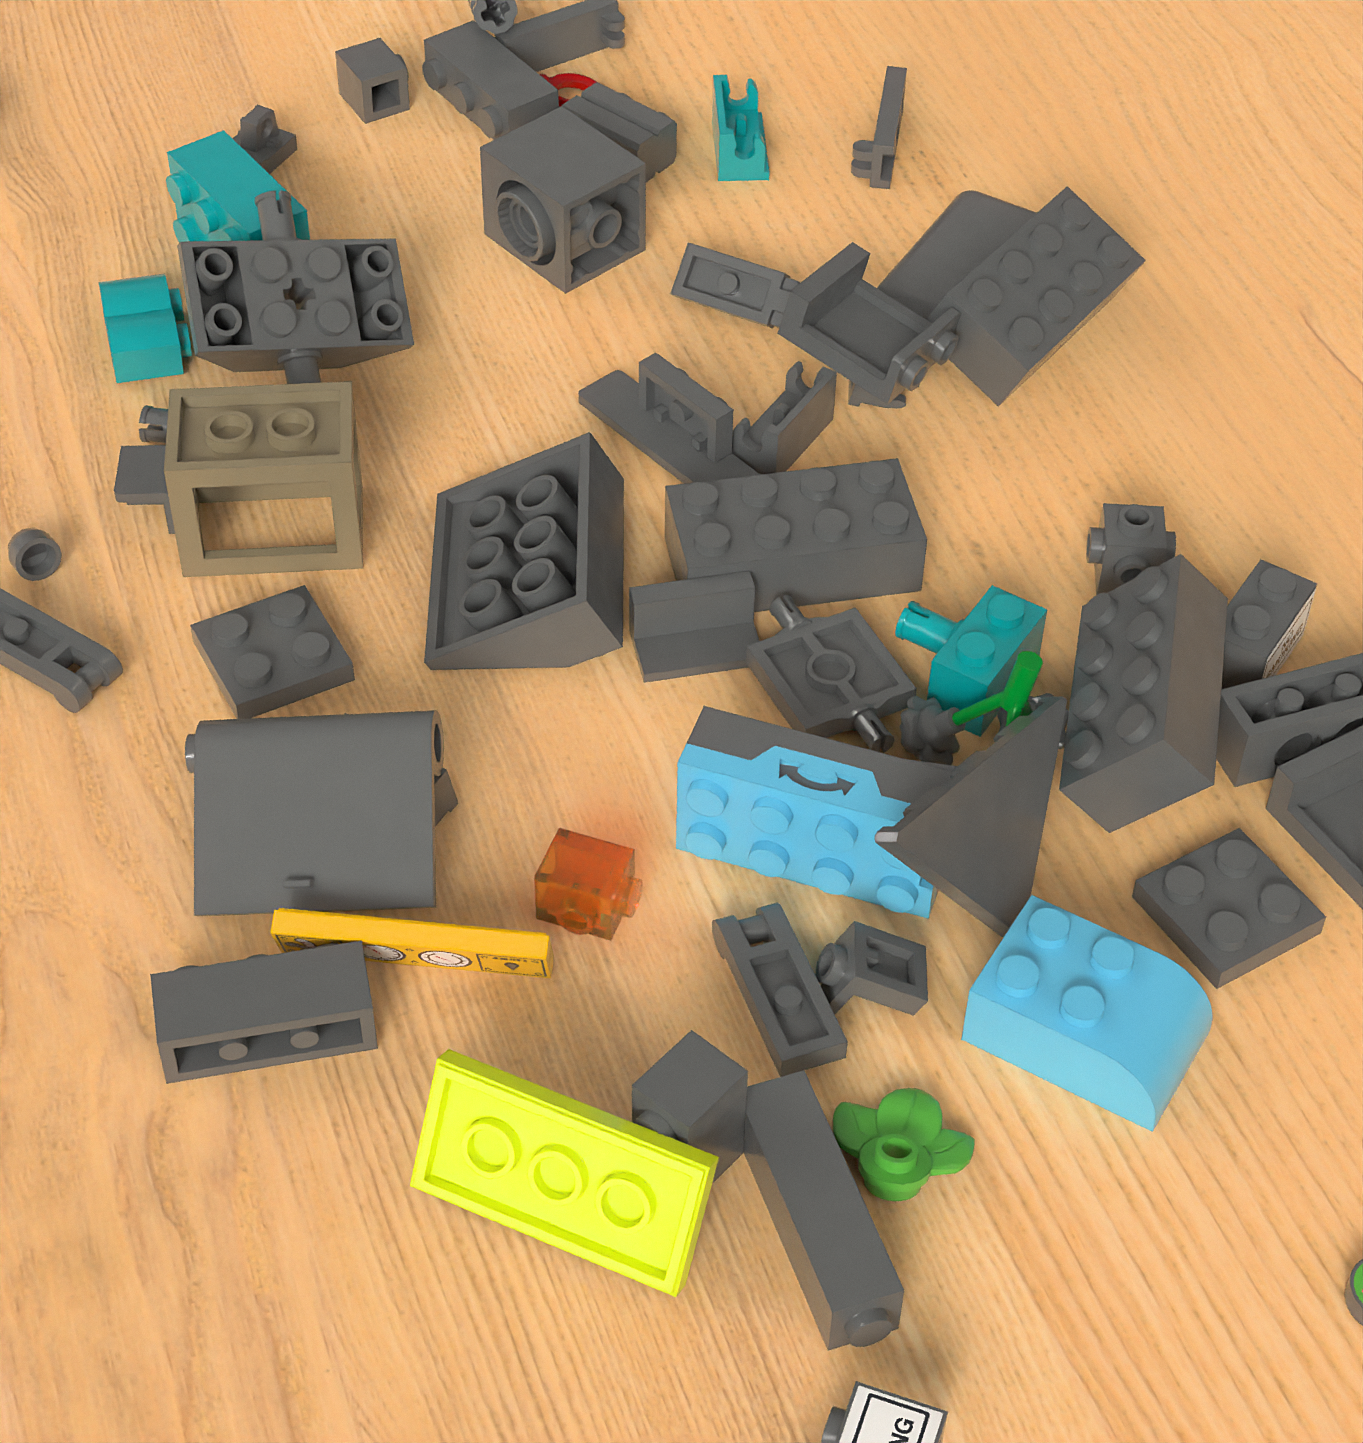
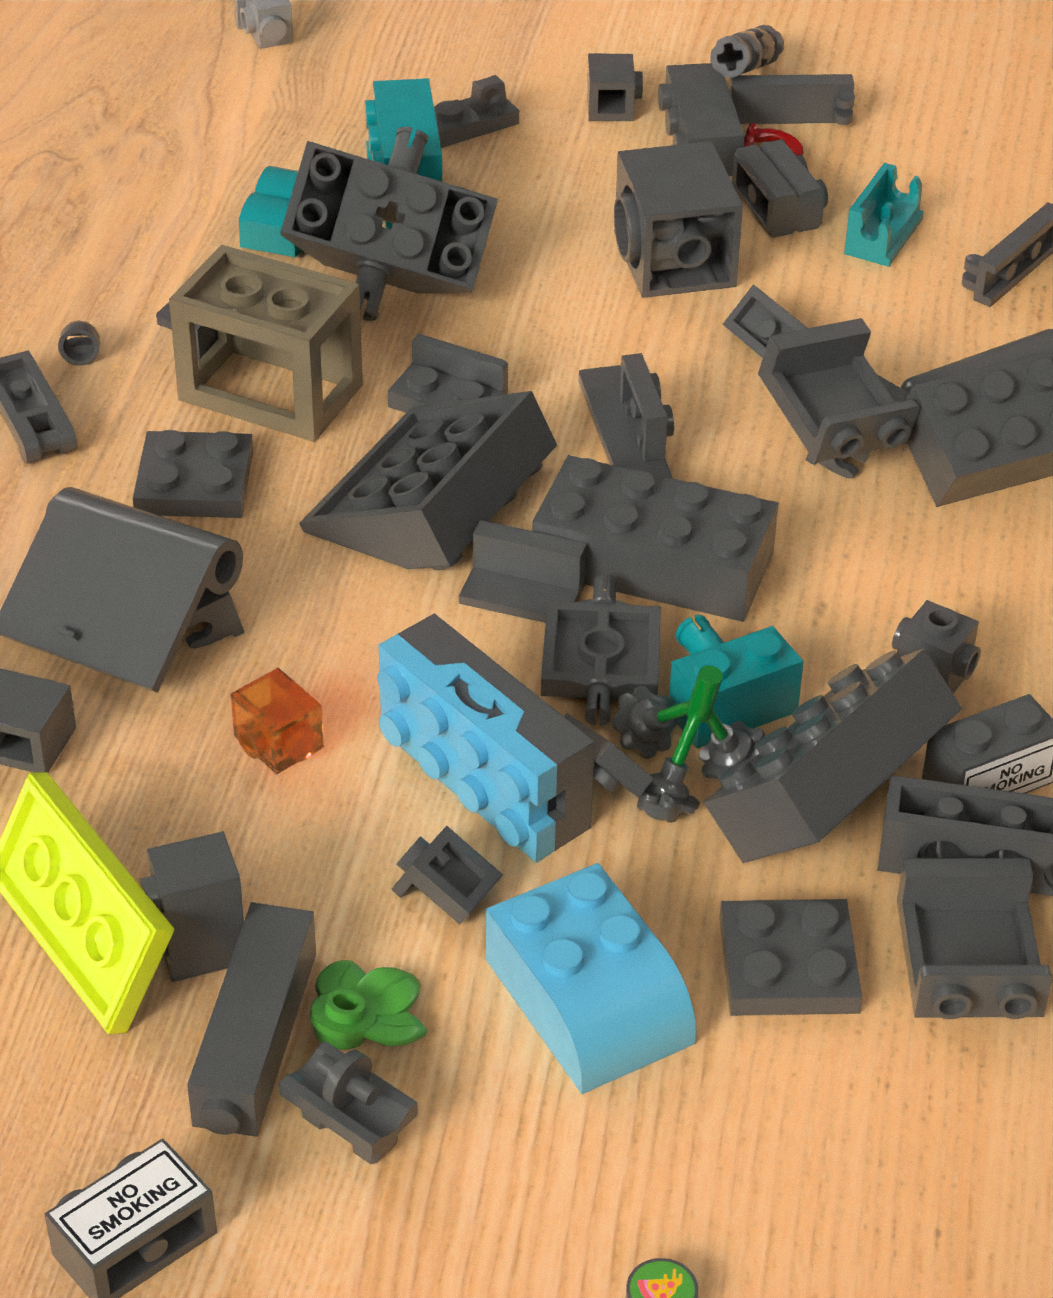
camera: 30 degrees right, 5 degrees down
(418, 942) = (123, 710): yellow tile -> none
(458, 447) = (446, 374): none -> dark grey bracket
(780, 990) = (363, 858): dark grey plate -> none
(788, 423) = (733, 455): dark grey hinge -> none
(980, 1248) = (350, 1100): none -> dark grey hips
(986, 824) = (597, 789): dark grey tile -> none

